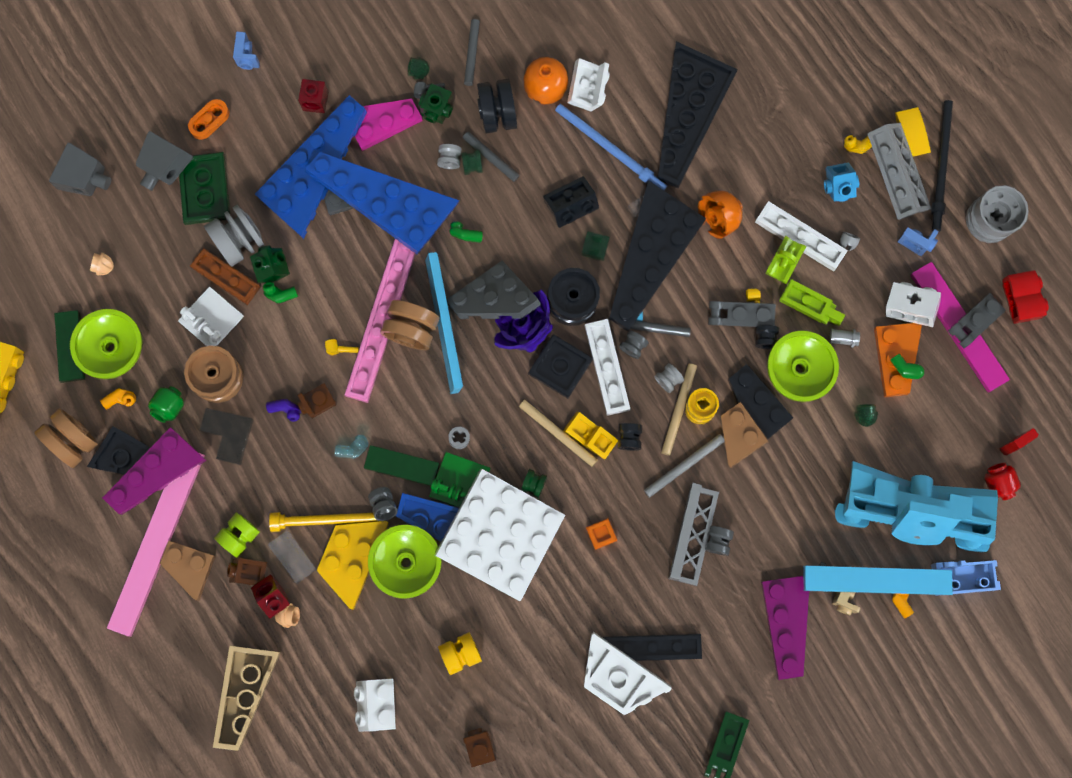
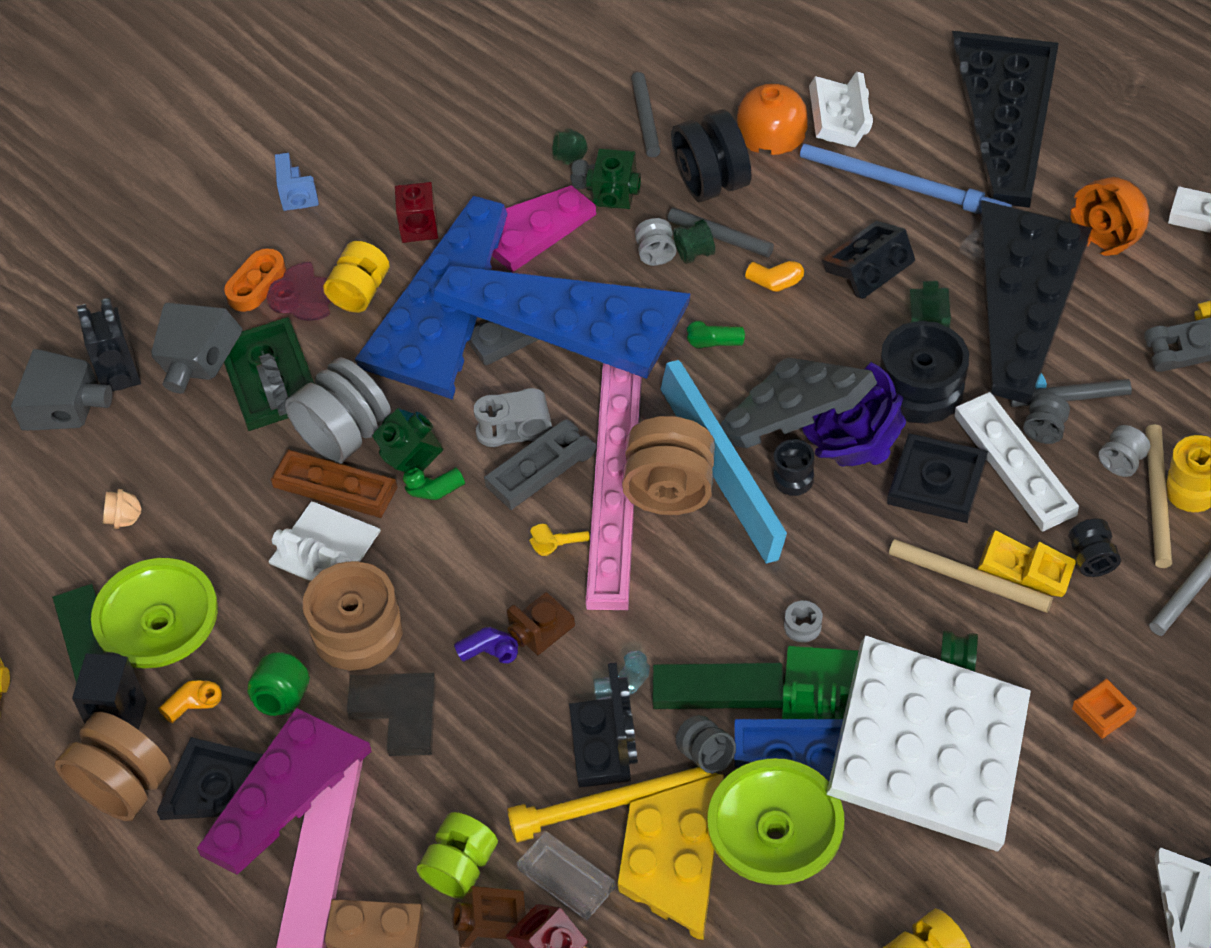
camera: 10 degrees left, 25 degrees down
(72, 393) = (110, 687): none -> black brick
(111, 154) = (109, 346): none -> black hinge
(199, 208) = (272, 383): none -> dark grey gear
(239, 135) = (299, 294): none -> clear pink plate
(265, 143) = (356, 276): none -> yellow wheel
(330, 482) = (604, 735): none -> black bracket
(337, 262) = (517, 417): none -> light grey piece
(342, 296) = (539, 463): none -> dark grey plate
(484, 335) = (794, 467): none -> black wheel
(513, 201) = (777, 277): none -> light orange arm

